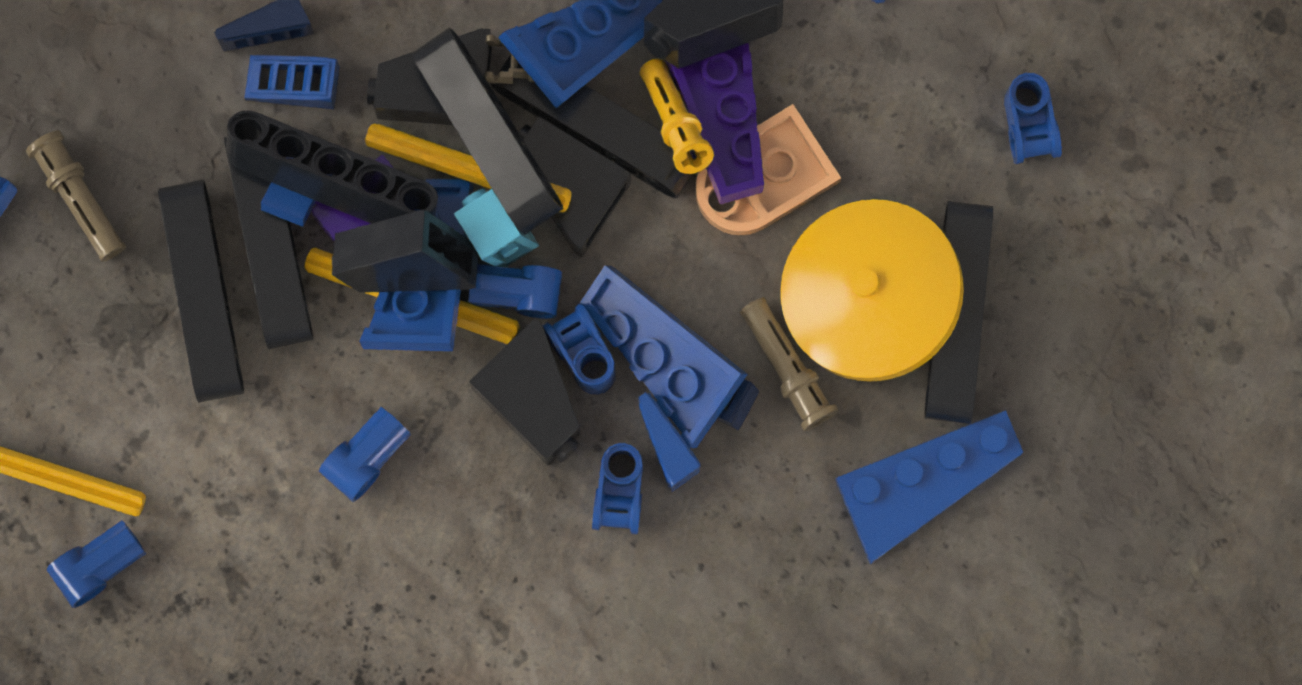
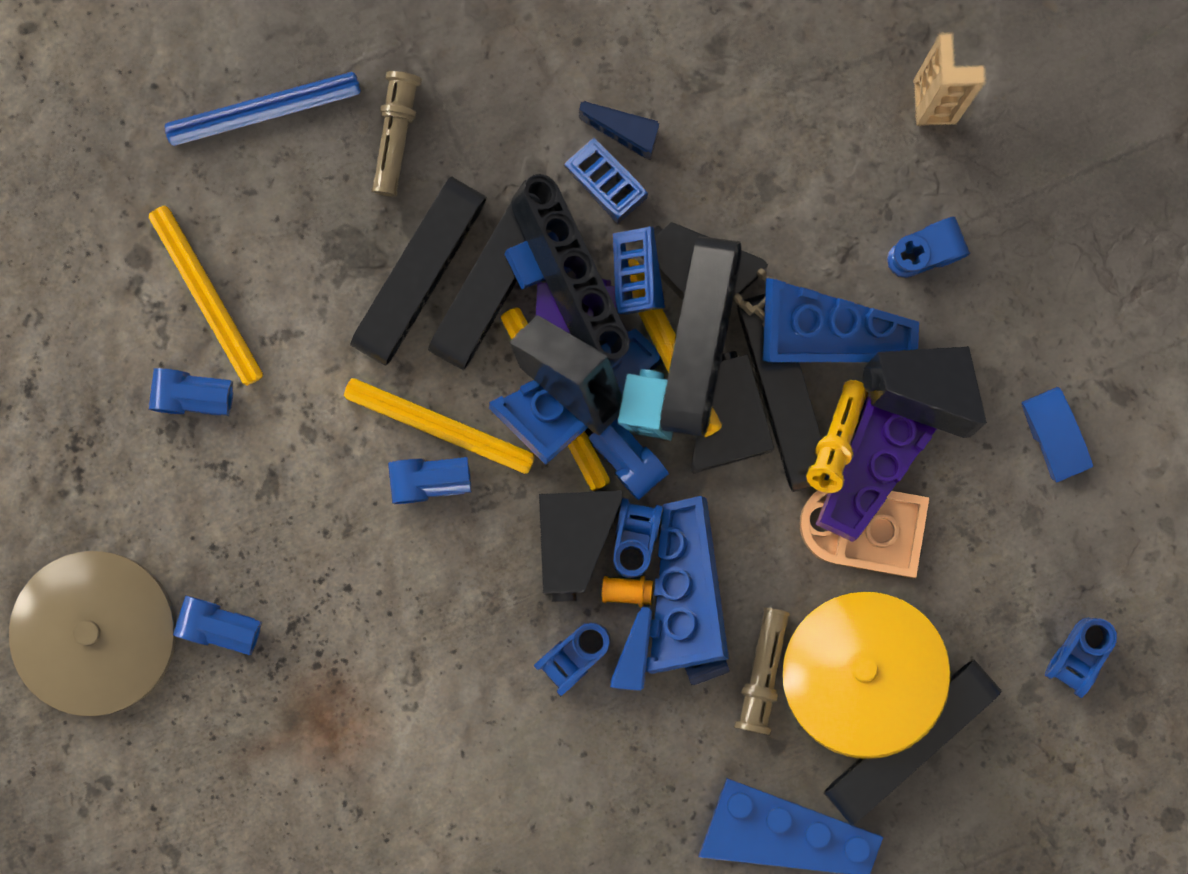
camera: 40 degrees right, 5 degrees up
(333, 404) = (439, 426): none -> yellow axle
(386, 150) = (652, 283): none -> blue slope
(615, 398) = (627, 591): none -> light orange pin

